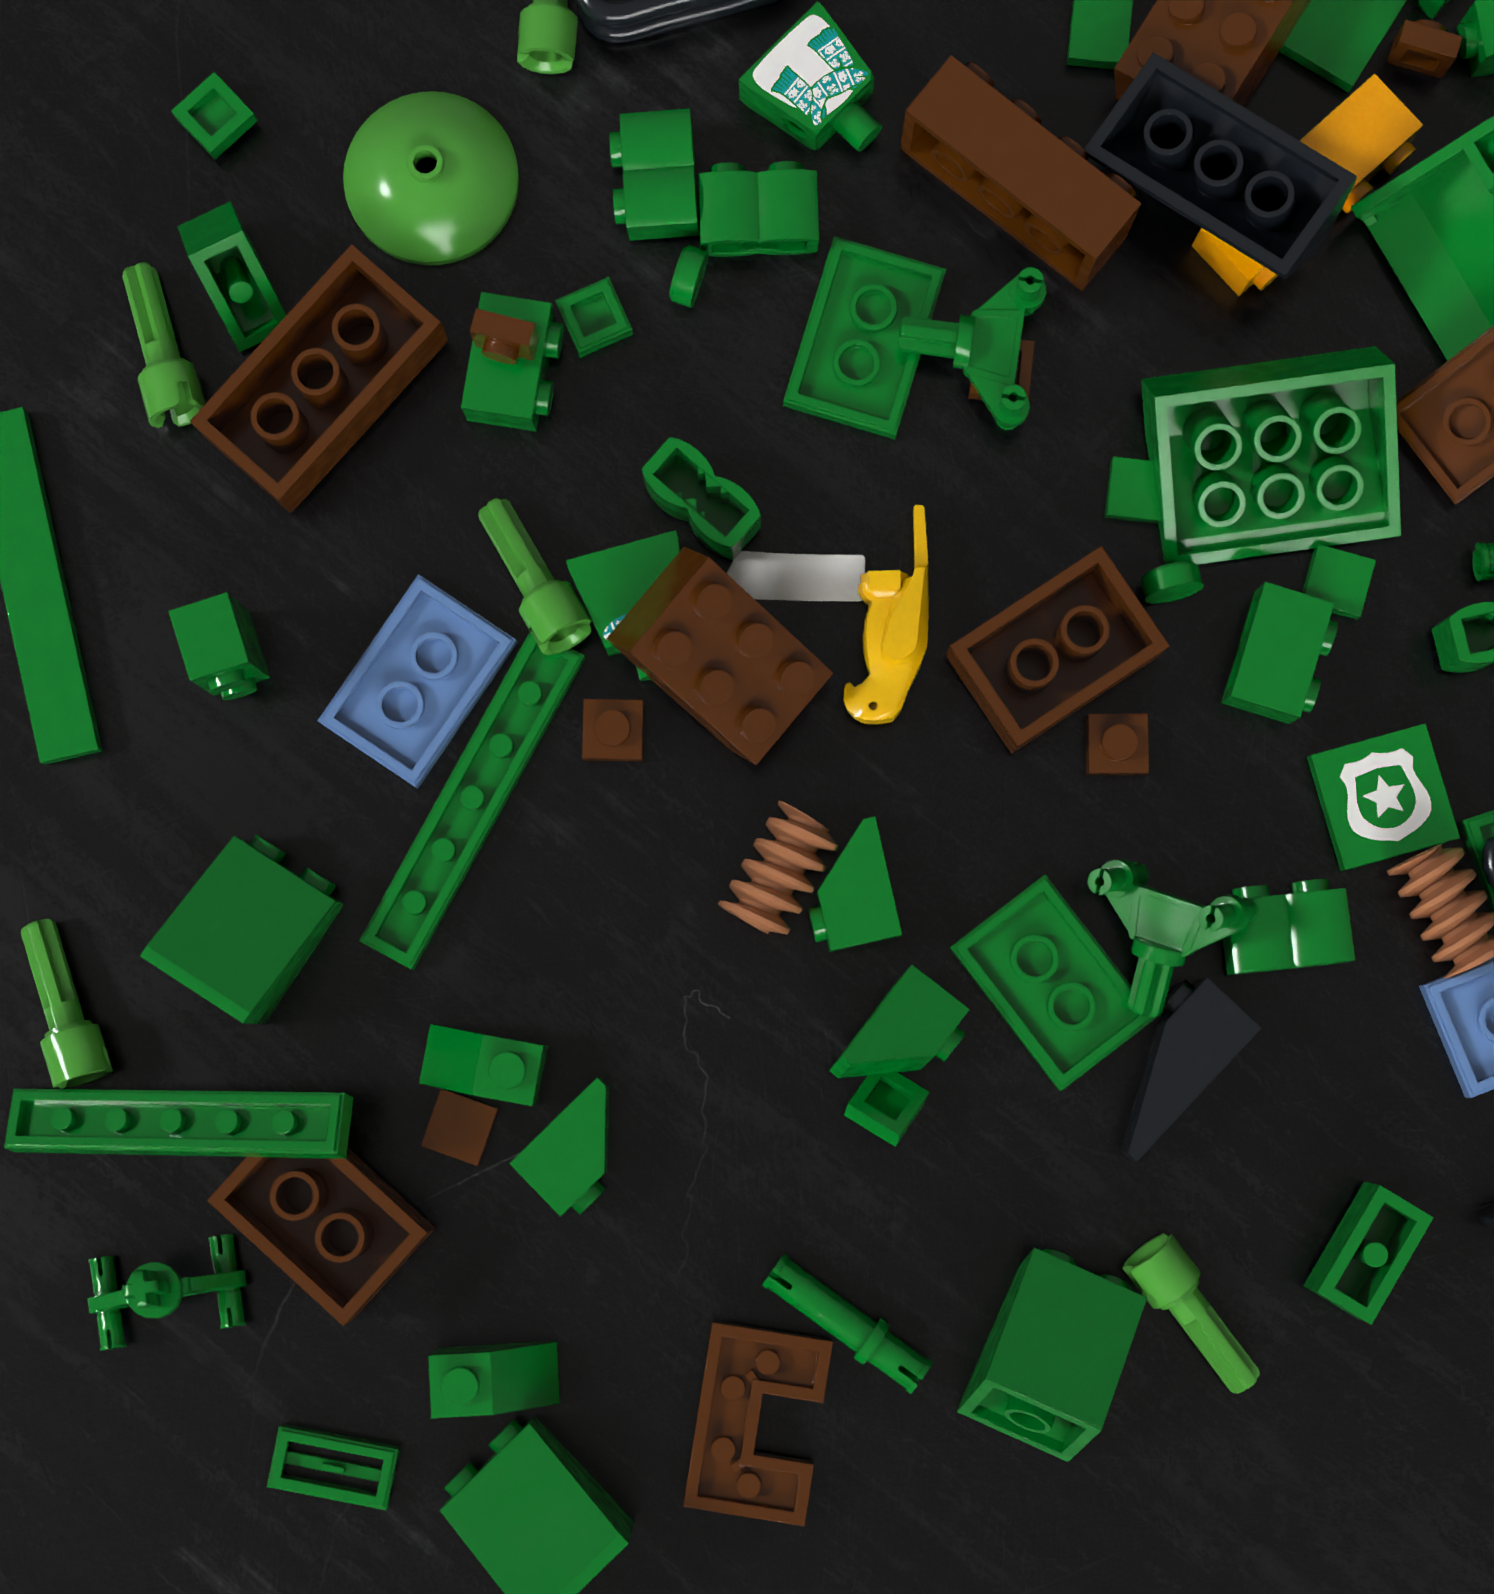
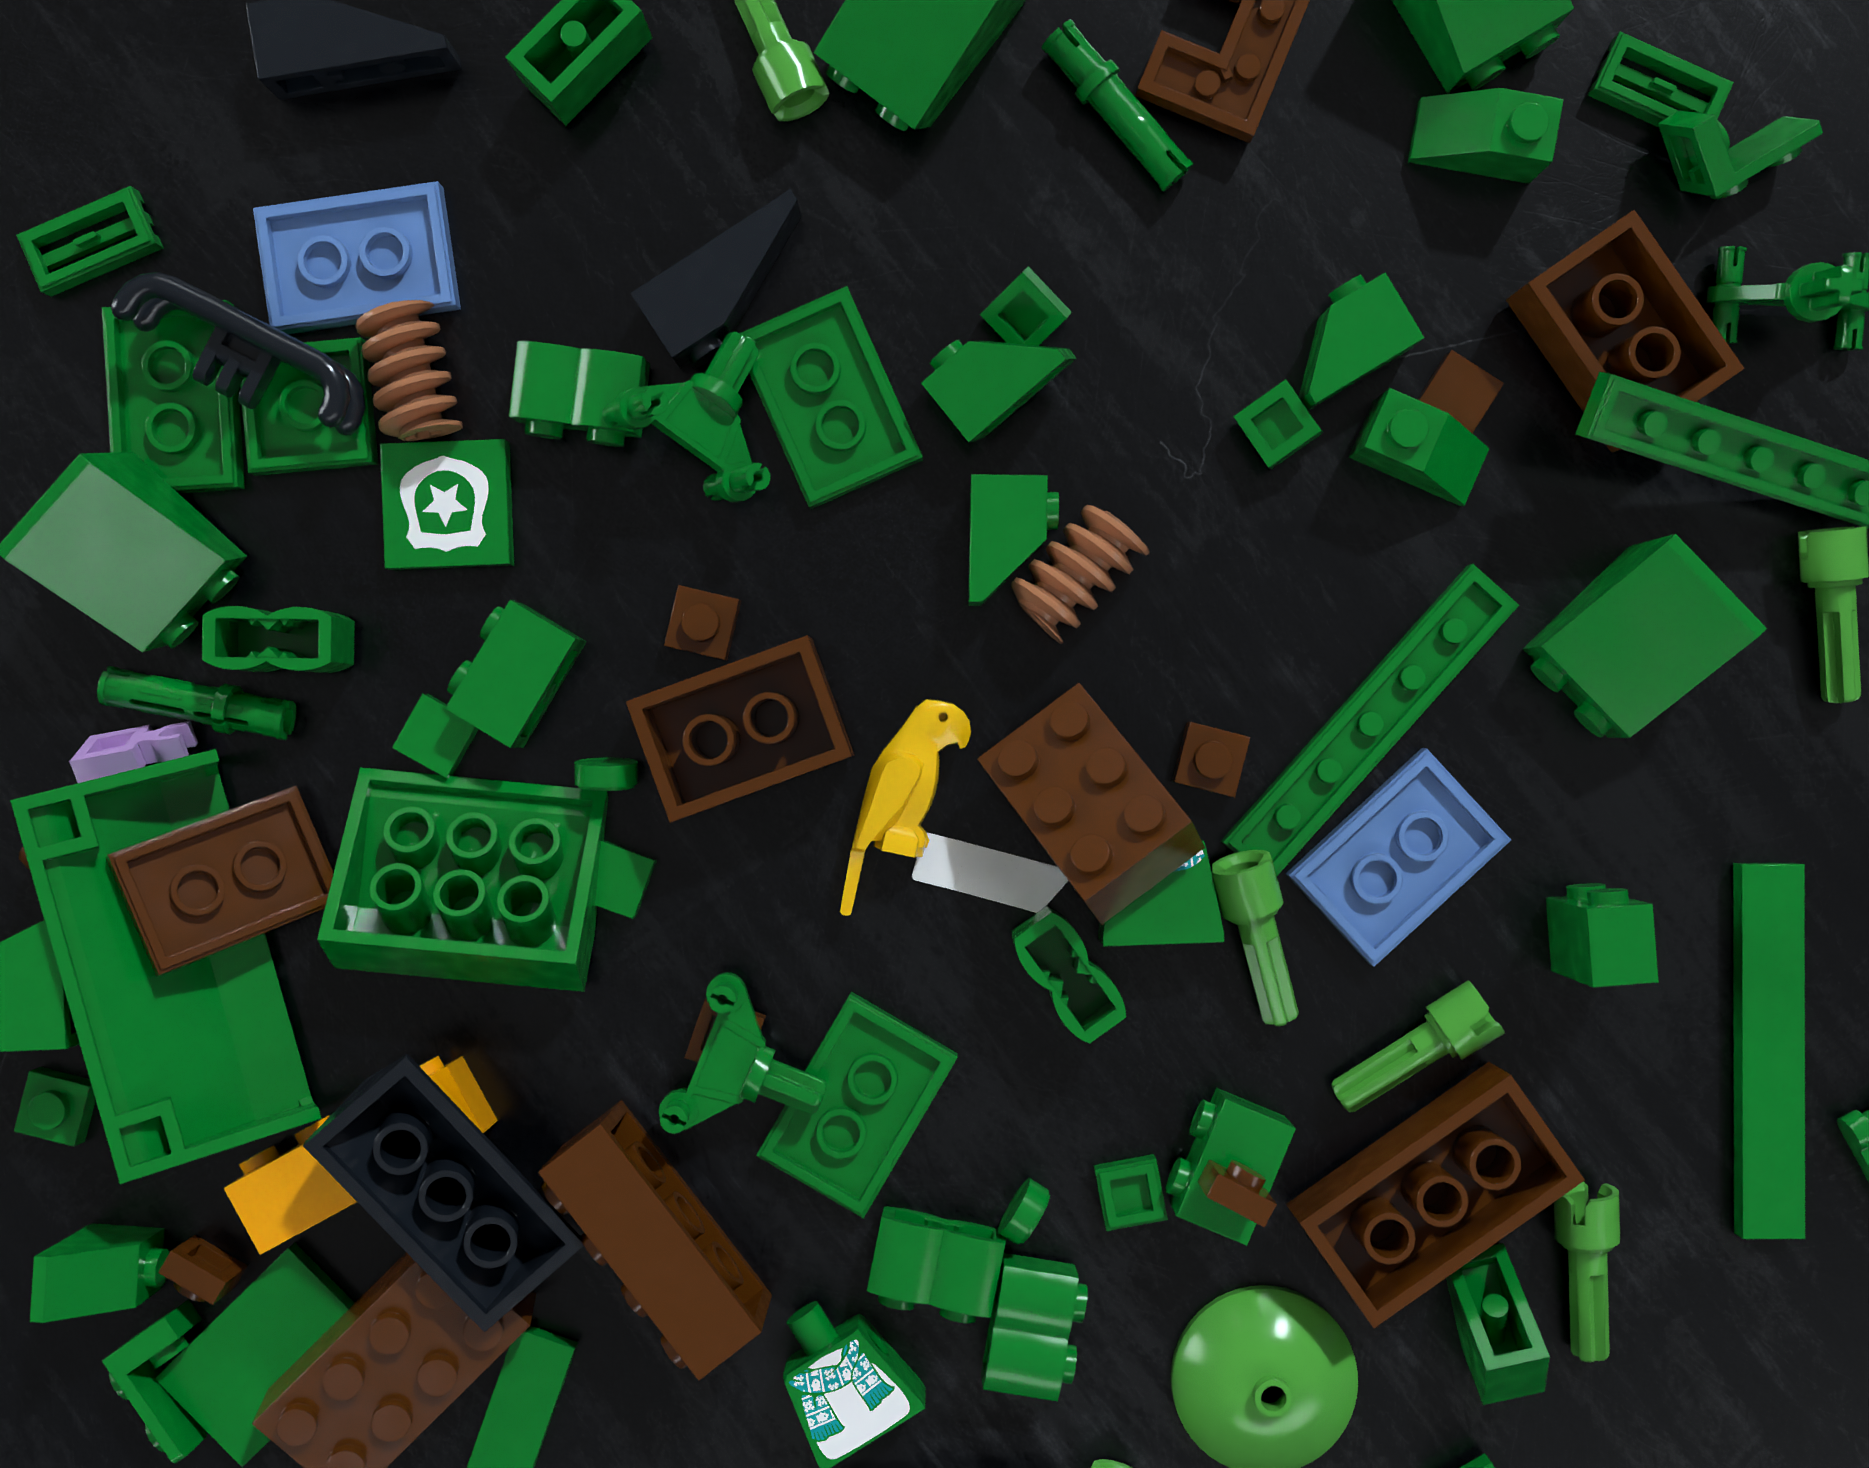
camera: 175 degrees left, 5 degrees up
(256, 1396) = (1708, 165): none -> green bracket
(332, 536) = (1454, 1025): none -> bright green piece
(624, 1055) = (1278, 424): none -> green plate

